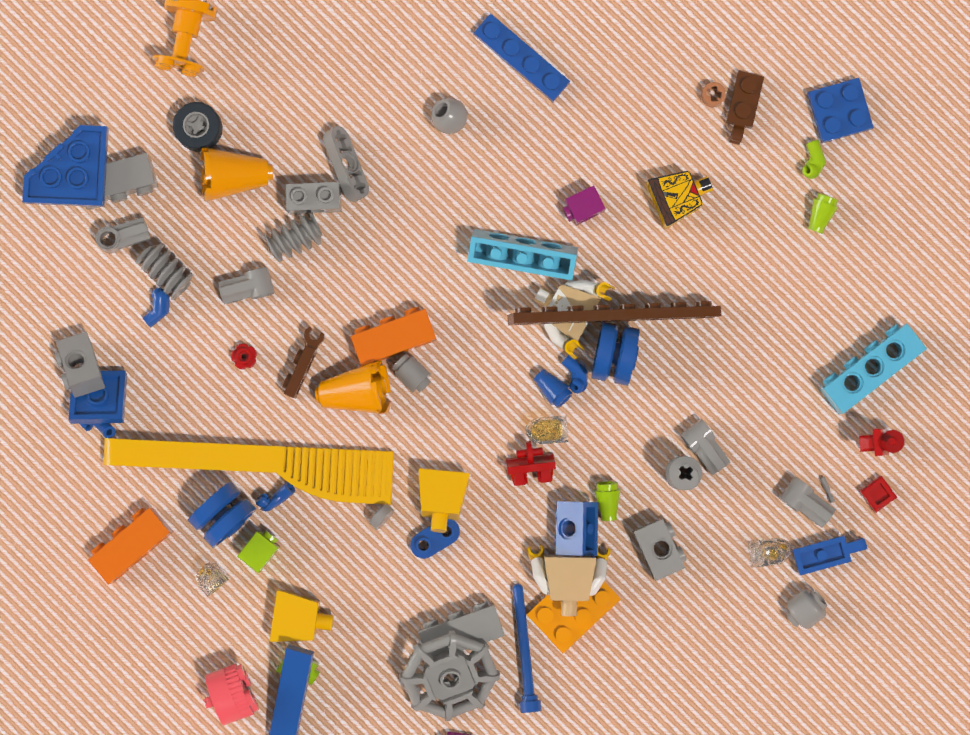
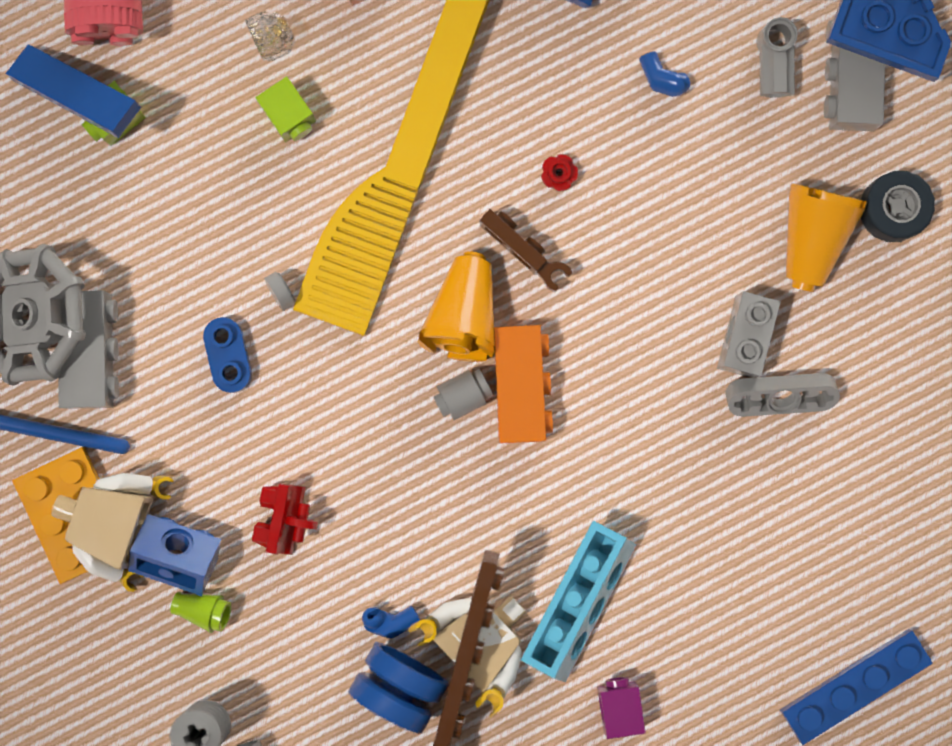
camera: 100 degrees right, 0 degrees up
(164, 270) = (711, 100): light grey piece -> none
(224, 517) = (350, 73): blue wheel -> none
(252, 285) = (654, 217): light grey piece -> none
(275, 499) = (351, 157): blue arm -> none
(294, 237) = (701, 291): light grey piece -> none
(297, 618) = (178, 133): yellow torso -> none
(442, 496) = (279, 382): yellow torso -> none
(449, 115) = (806, 559): light grey piece -> none
(547, 430) = (323, 558): rock -> none
(553, 389) = (379, 583): blue cone -> none
(659, 565) = (86, 665): light grey brick -> none

